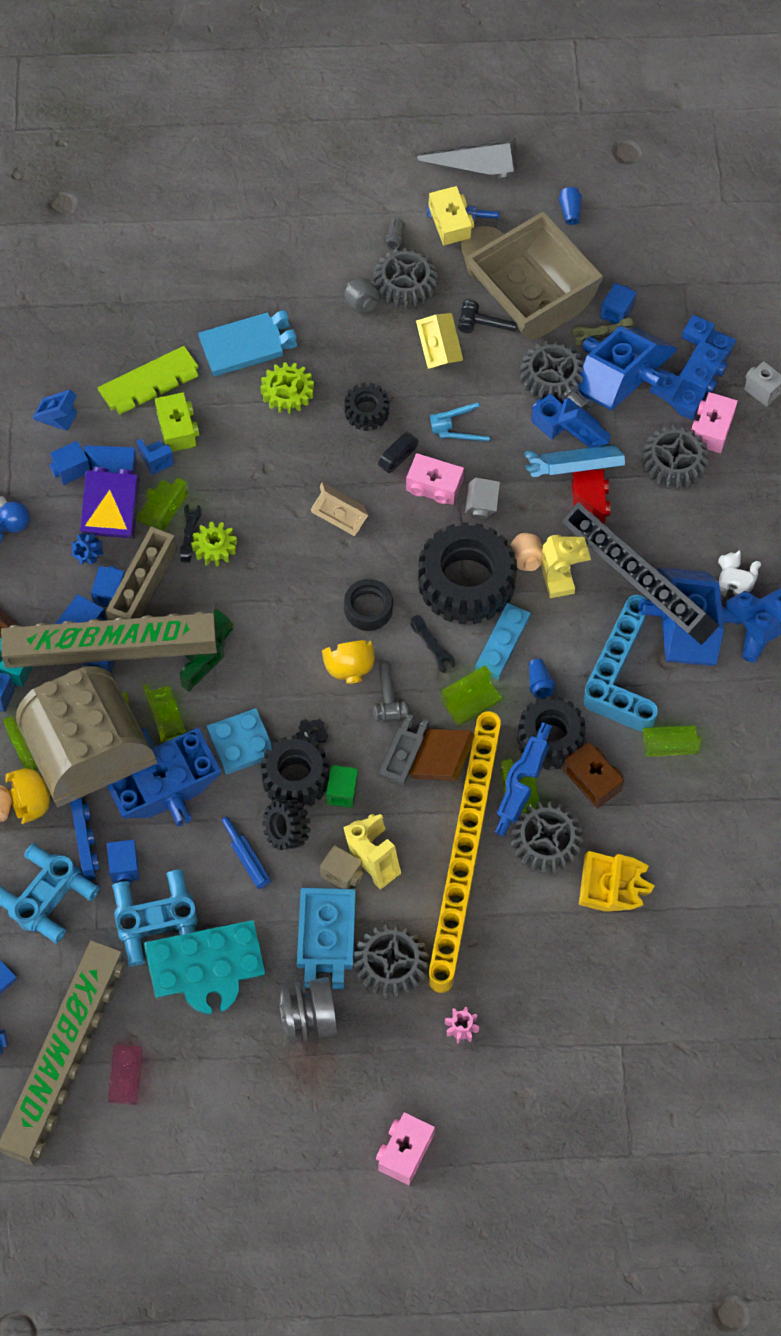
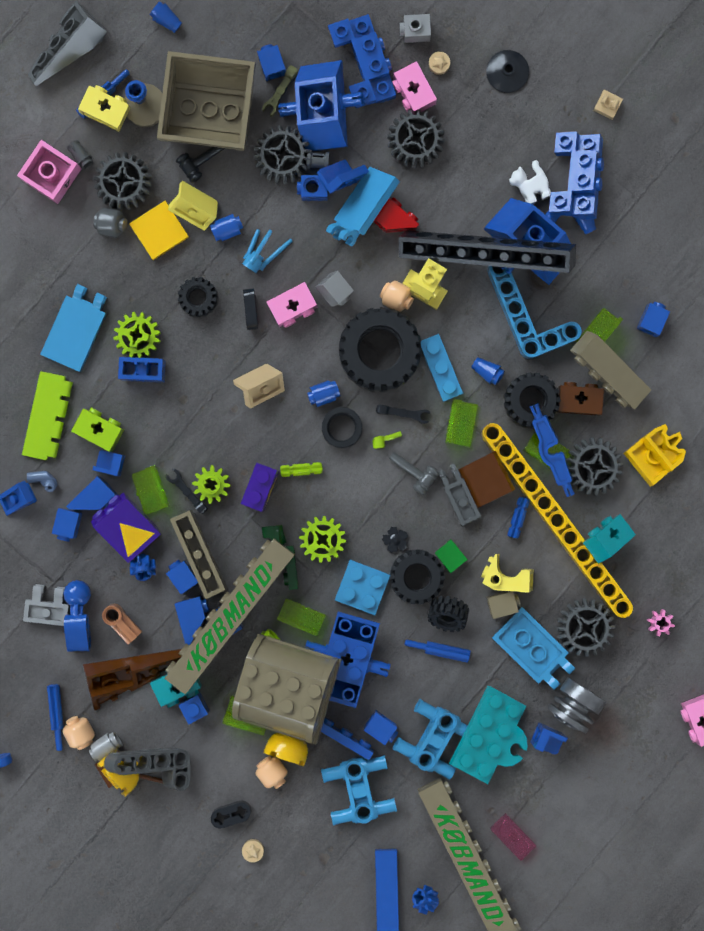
camera: 45 degrees left, 25 degrees up
(19, 572) = (123, 625): none -> nougat piece
(93, 417) = (44, 478): none -> sand blue arm
(242, 664) = (330, 532): none -> lime gear
(249, 574) = (260, 487): none -> dark purple brick
(250, 1011) = (547, 739): none -> blue panel
(261, 410) = (141, 369): none -> blue brick
(298, 604) = (301, 469): none -> lime axle
(350, 660) = (372, 476): yellow cylinder -> none
(357, 220) = (49, 172): none -> bright pink brick
(383, 565) = (323, 393): none -> blue brick
(387, 644) = (379, 441): none -> lime hand
(392, 337) = (159, 230): none -> yellow tile
(435, 817) = (518, 517): none -> blue axle
(447, 380) = (226, 227): none -> blue brick
(487, 224) = (133, 88): none -> blue cone
(494, 902) = (609, 538): none -> teal brick
(645, 768) = (610, 370): none -> dark tan brick
(729, 774) = (653, 319): none -> blue brick
(756, 426) = (439, 63): none -> tan tile

